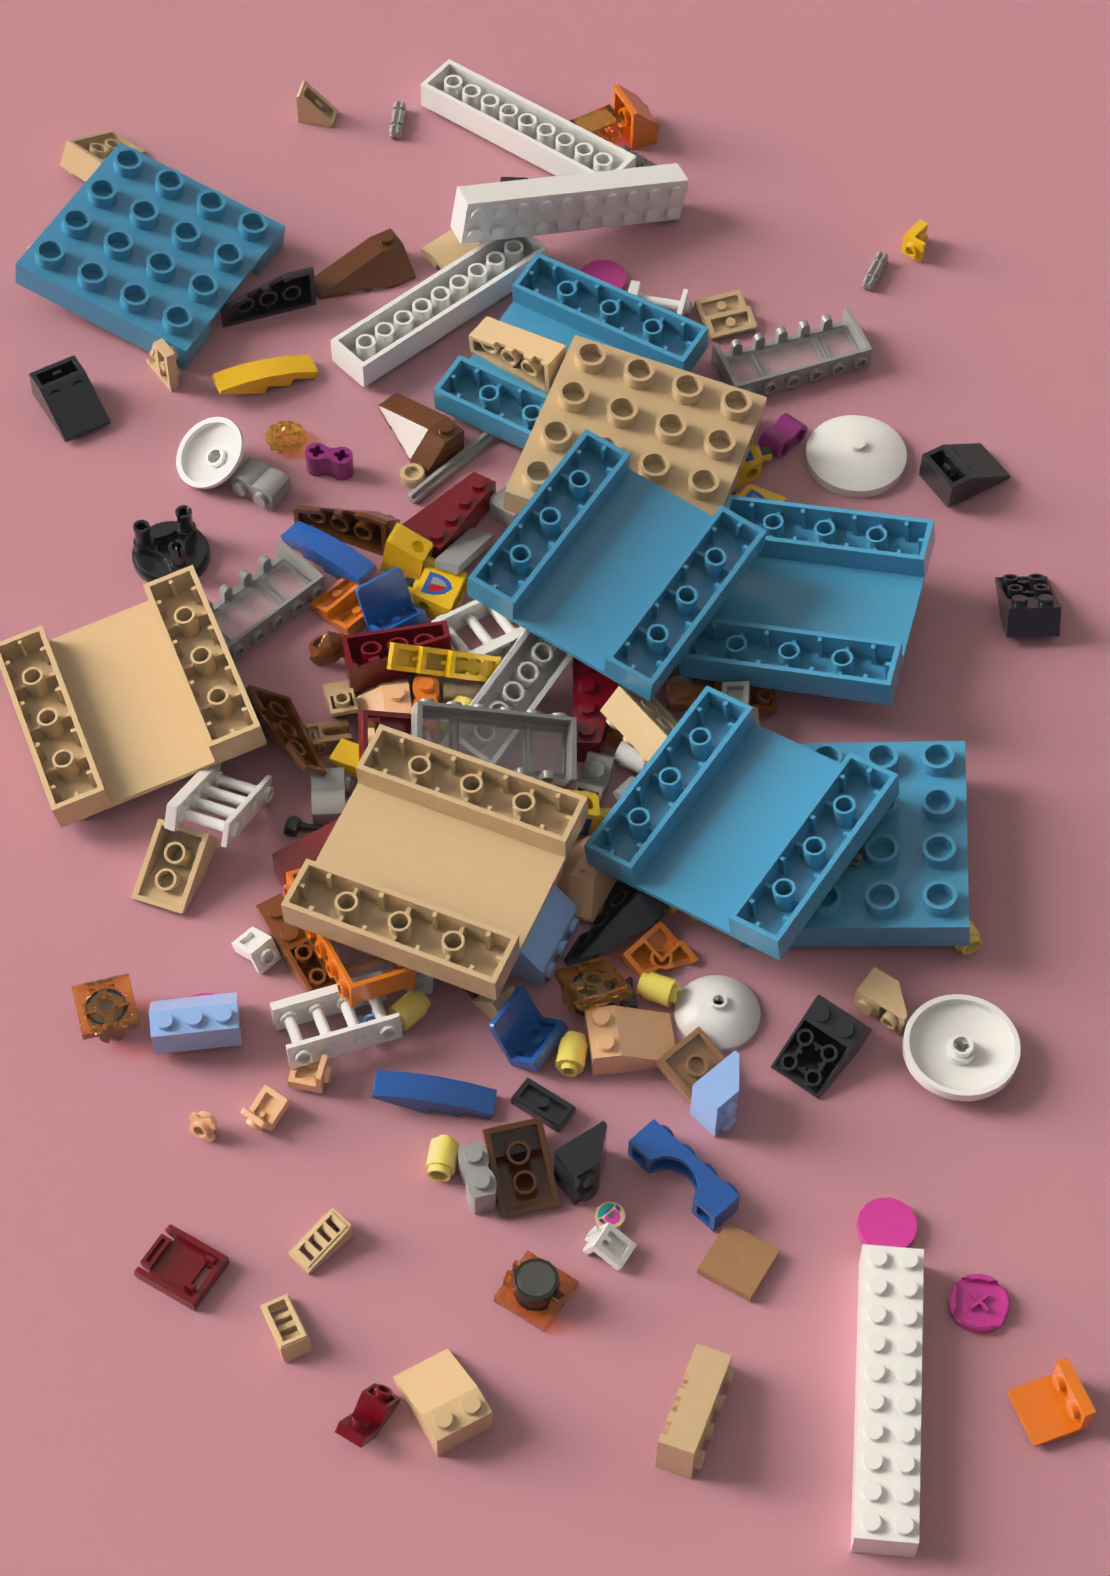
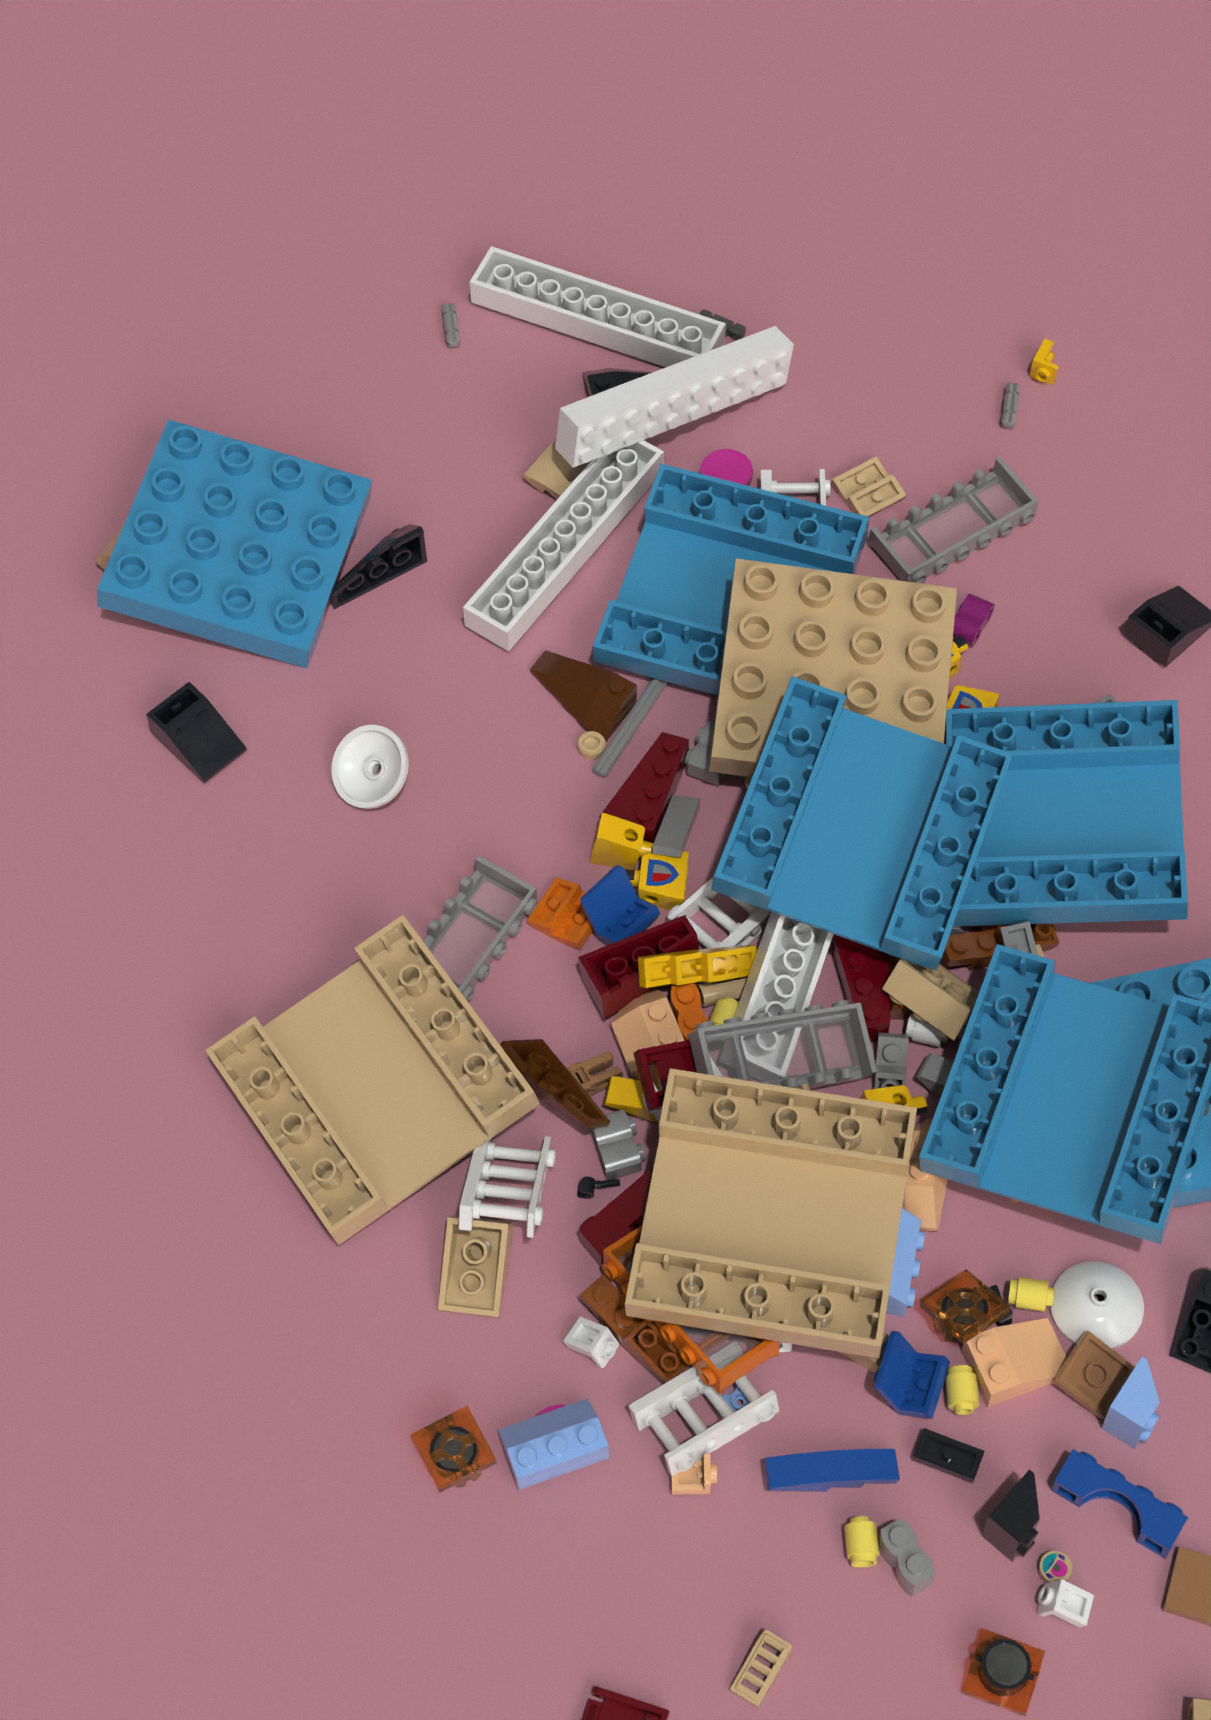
camera: 10 degrees left, 5 degrees up
(87, 152) = (137, 430): tan slope -> none
(164, 364) = (289, 669): tan wing -> none
(169, 546) = (358, 890): black piece -> none
(203, 1125) = (596, 1562): light nougat plate -> none
(261, 483) = (433, 789): light grey brick -> none
(264, 373) = (399, 657): yellow slope -> none
(266, 1109) = (658, 1528): light nougat bracket -> none
(292, 430) = (447, 718): clear yellow gear -> none
(314, 108) = (358, 329): tan slope -> none
(329, 461) = (499, 748): magenta axle -> none
(329, 552) = (534, 857): blue slope -> none
(329, 648) = (566, 972): dark orange piece -> none
(339, 698) = (594, 1029): tan slope -> none
(355, 527) = (554, 821): reddish brown wedge -> none
(373, 263) = (476, 504): reddish brown wedge -> none
(410, 1008) = (775, 1375): light yellow brick -> none
(518, 352) = (674, 584): tan wedge -> none
(521, 1167) = (948, 1532): reddish brown slope -> none
(602, 122) = (673, 288): clear orange brick -> none
(624, 916) = (965, 1225): black wedge -> none
(638, 123) = (705, 277): orange slope -> none
(657, 952) = (1013, 1250): orange slope -> none
(856, 456) = (1052, 626): white dish -> none

